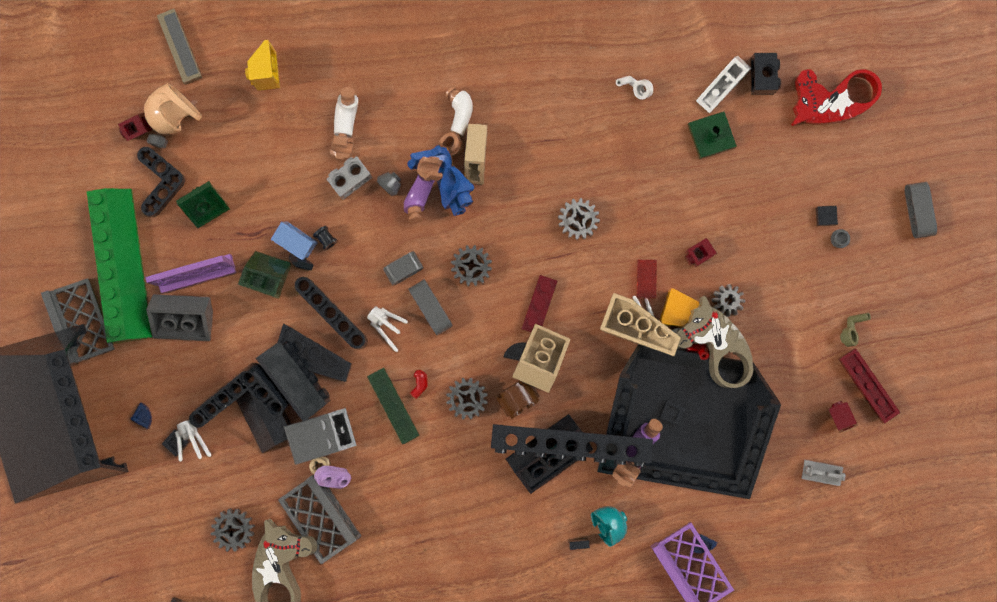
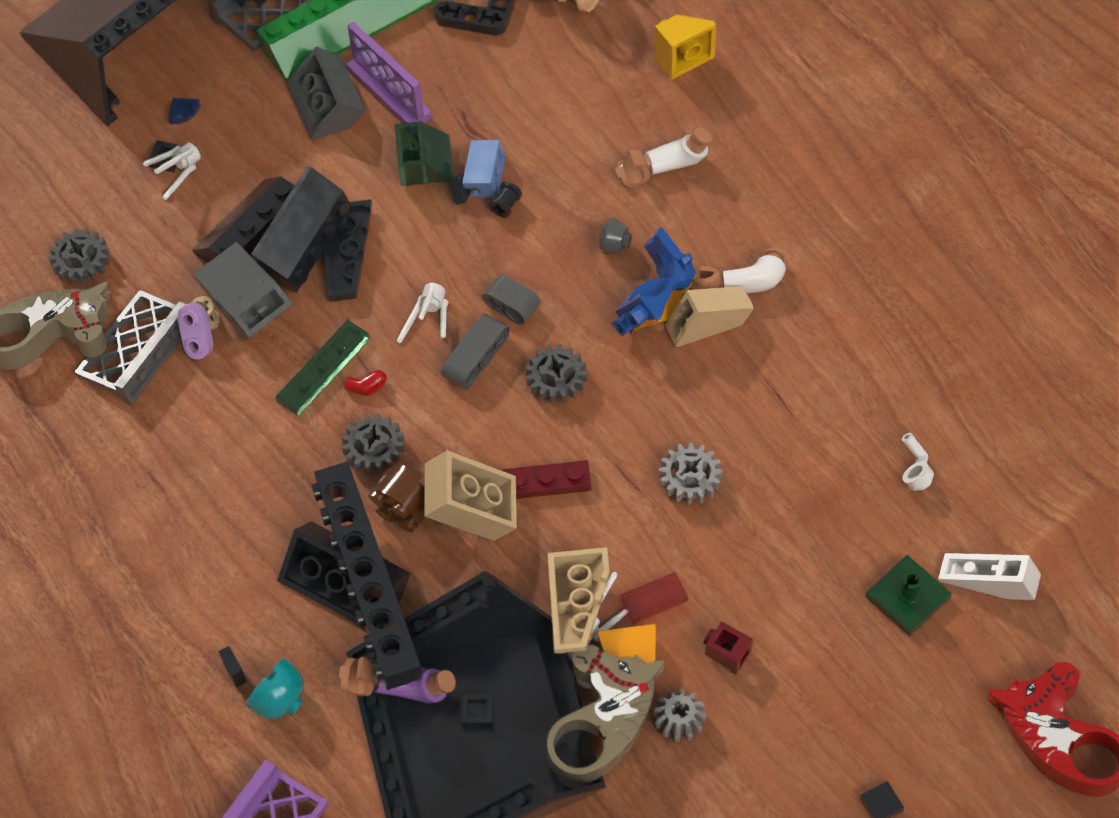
camera: 65 degrees right, 25 degrees down
(203, 204) = (476, 55): dark green tile -> none
(232, 391) = (270, 173): black beam -> none
(324, 306) = (417, 232): black beam -> none
(352, 182) = (591, 190): light grey brick -> none
(419, 192) = (624, 270): piece -> none
(702, 350) = (586, 699): red arm -> none
(759, 83) = (1048, 609): black brick -> none

